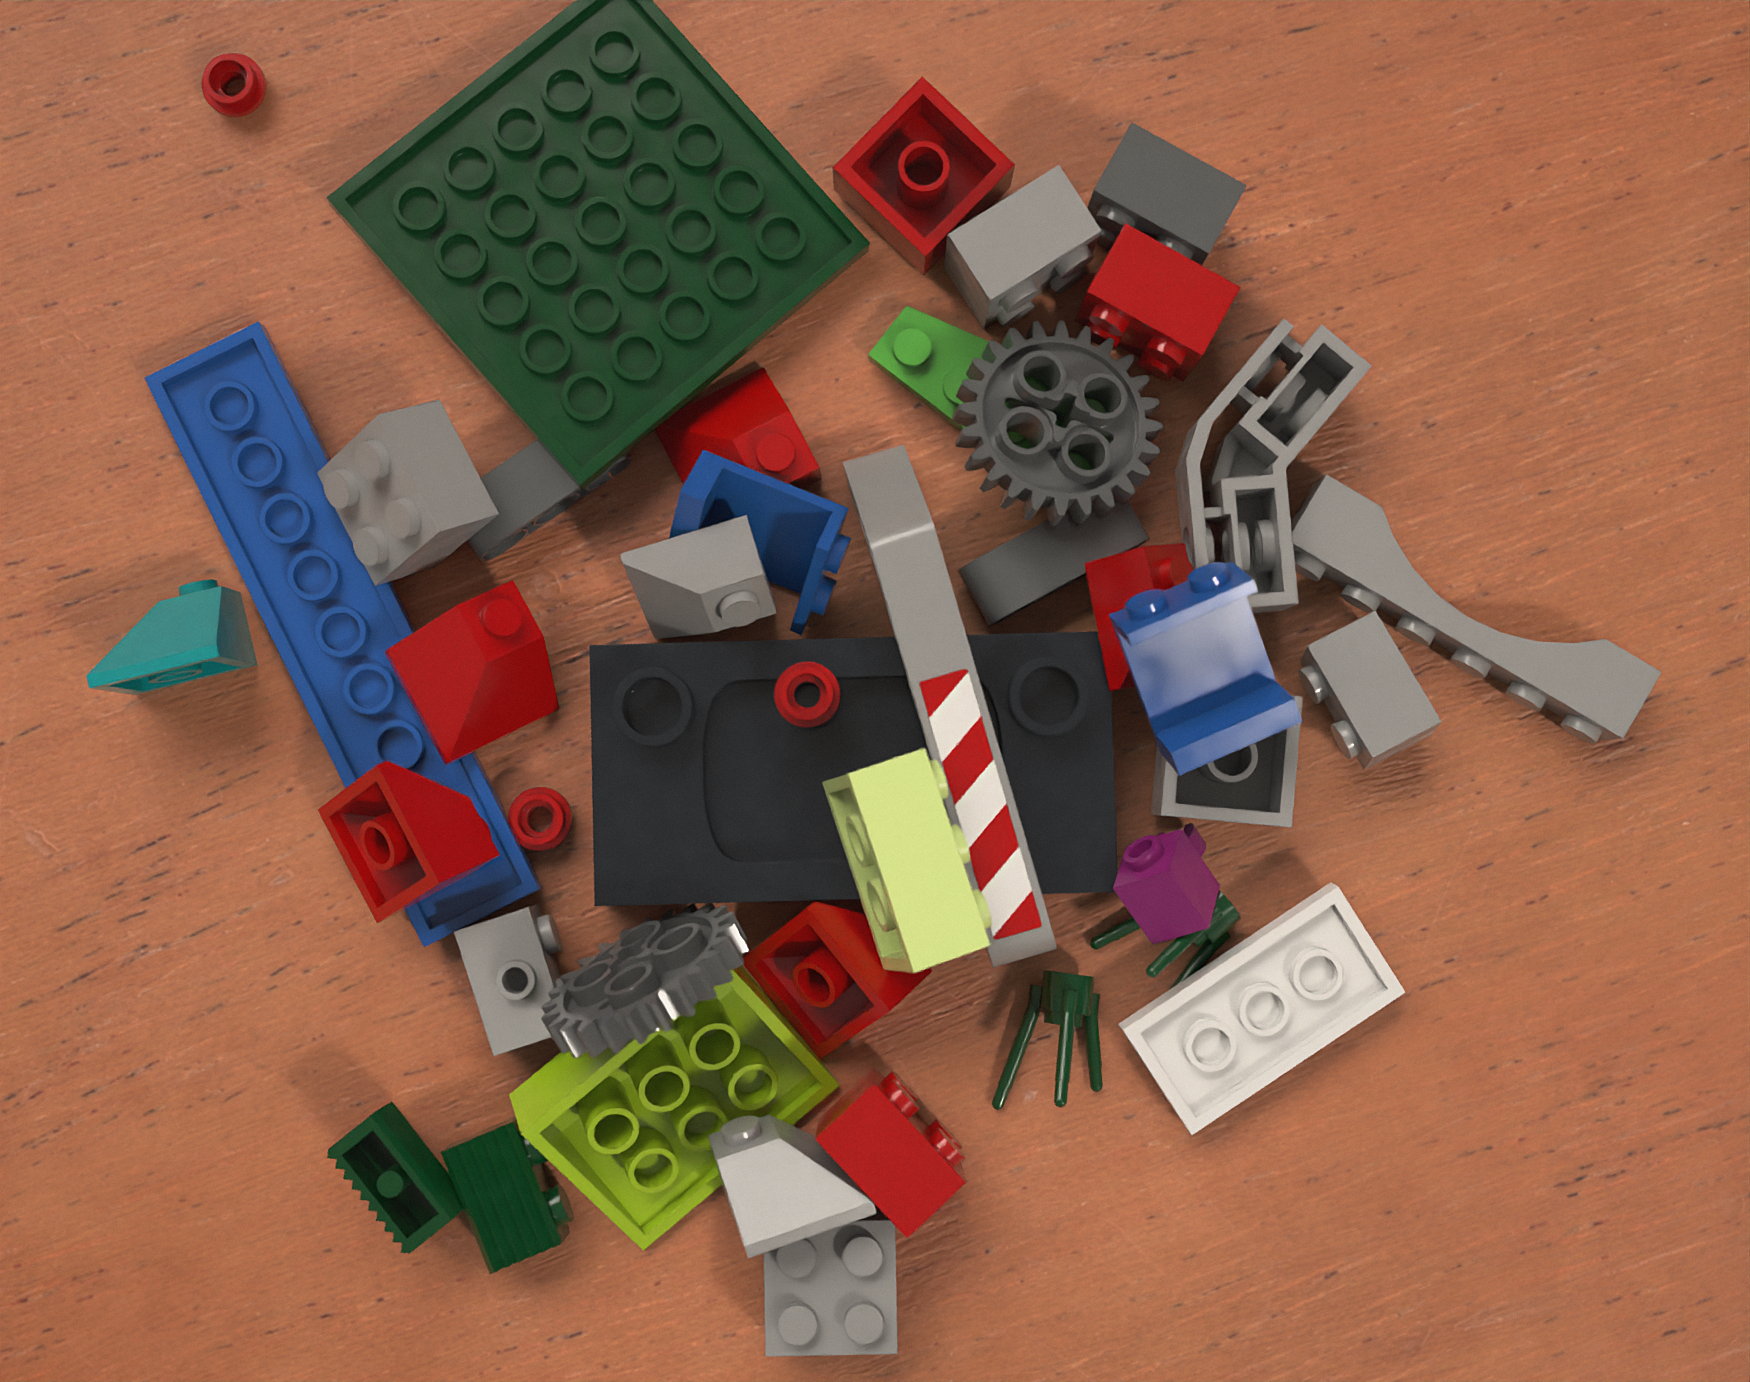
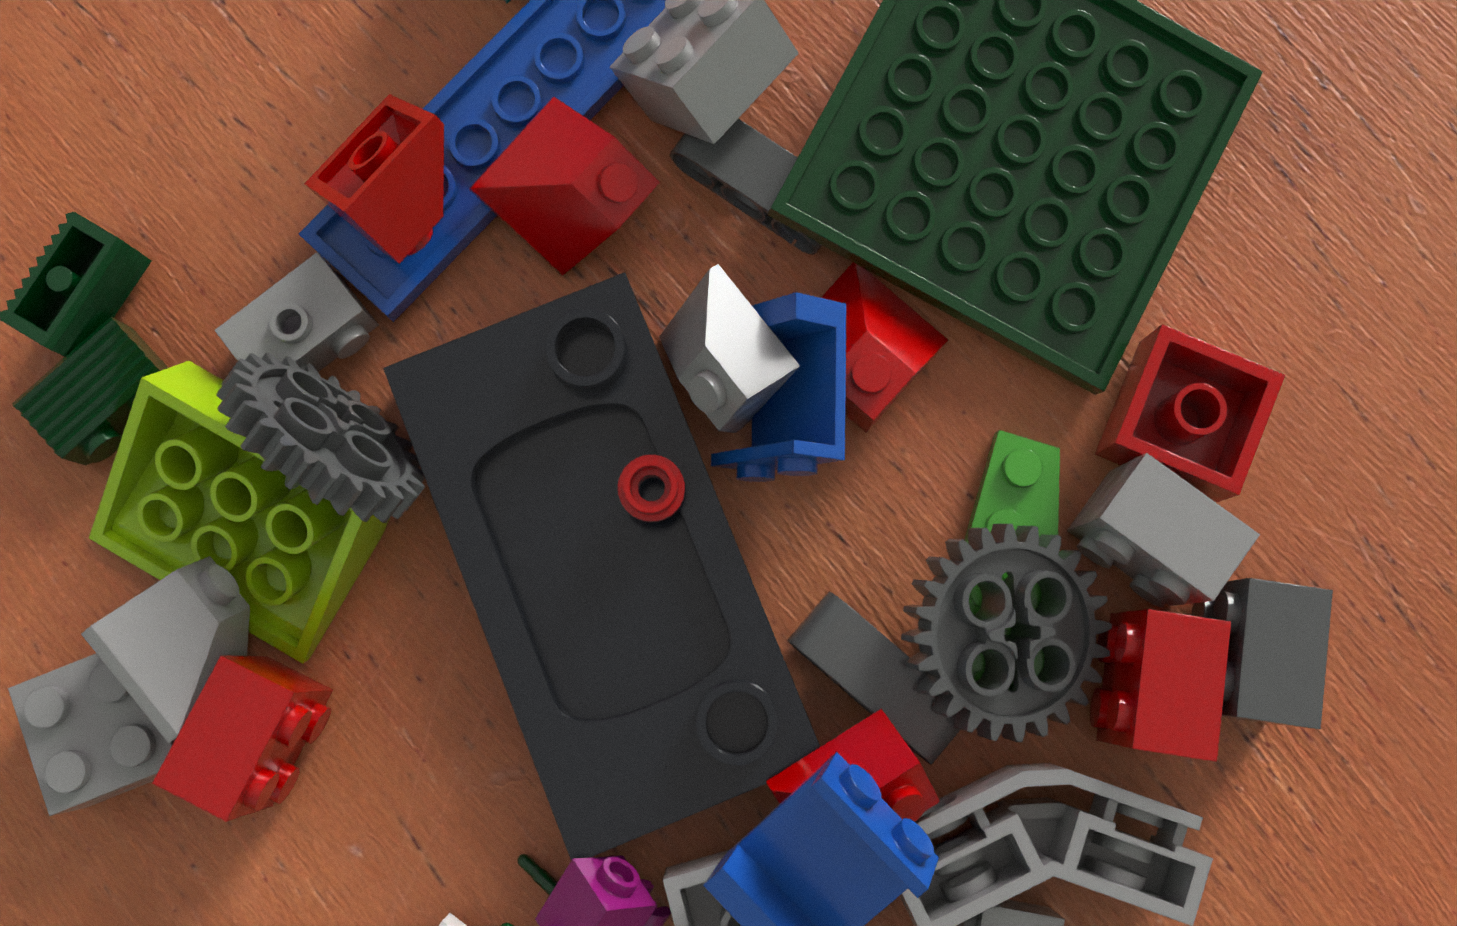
camera: 70 degrees right, 5 degrees down
(520, 815) = (442, 283): red plate -> none
(828, 975) = (404, 621): red slope -> none
(908, 862) = (518, 648): yellowish green slope -> none
(950, 699) = (686, 631): light grey beam -> none
(1066, 1002) = (456, 852): dark green plant -> none

